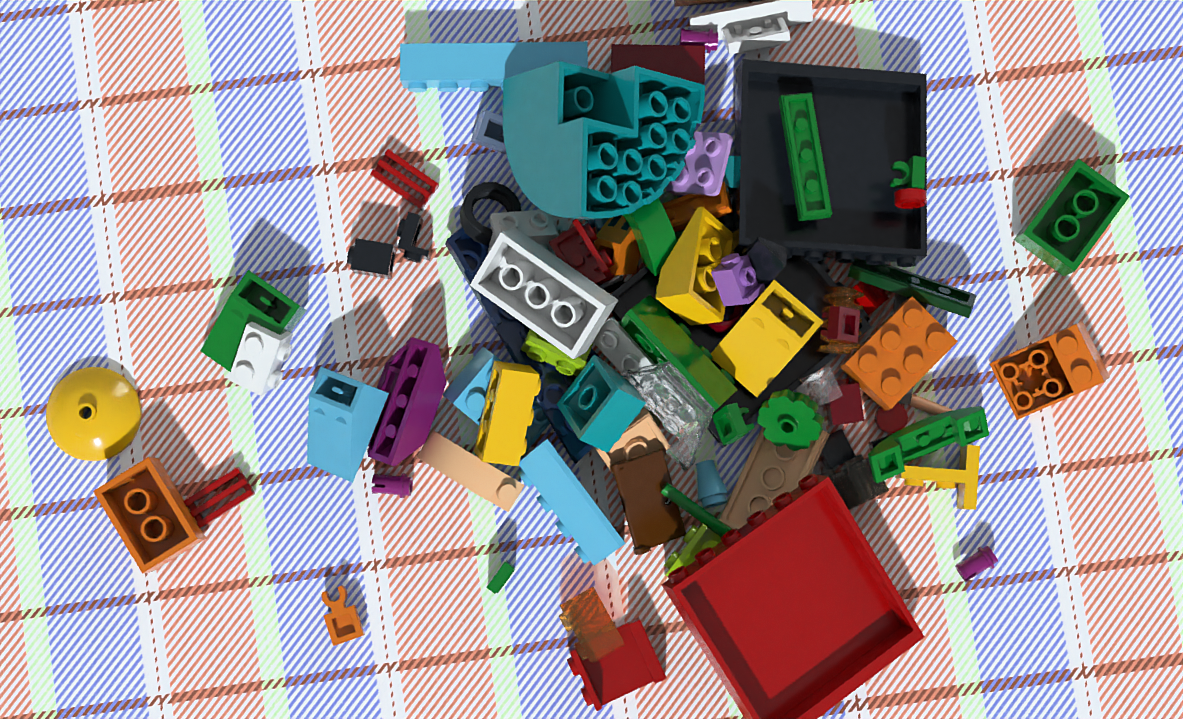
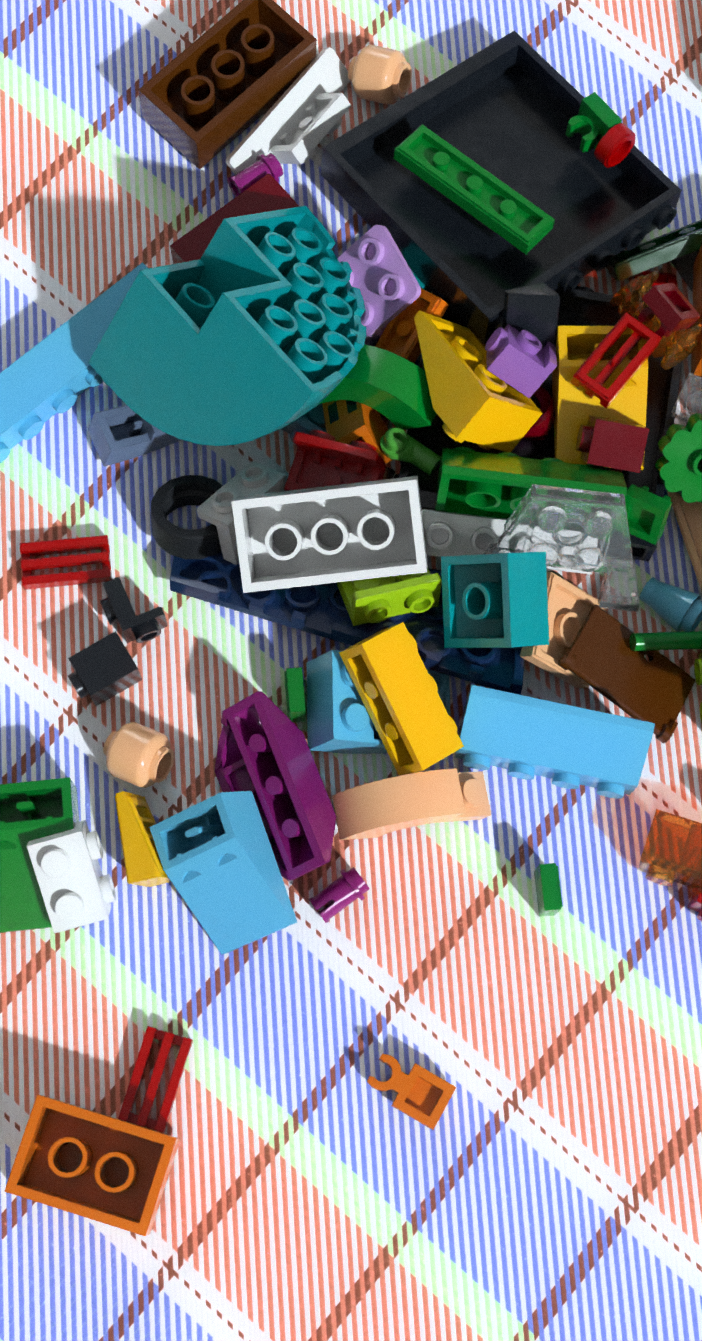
camera: 45 degrees left, 10 degrees down
(319, 355) = (138, 847): none -> yellow slope
(351, 321) = (138, 755): none -> light nougat head
(460, 358) = (295, 694): none -> green tile
(634, 274) = (402, 447): none -> bright green arm
(745, 371) = (612, 443): none -> dark red brick
(759, 333) = (595, 386): none -> red tile
(827, 34) = (380, 74): none -> light nougat head

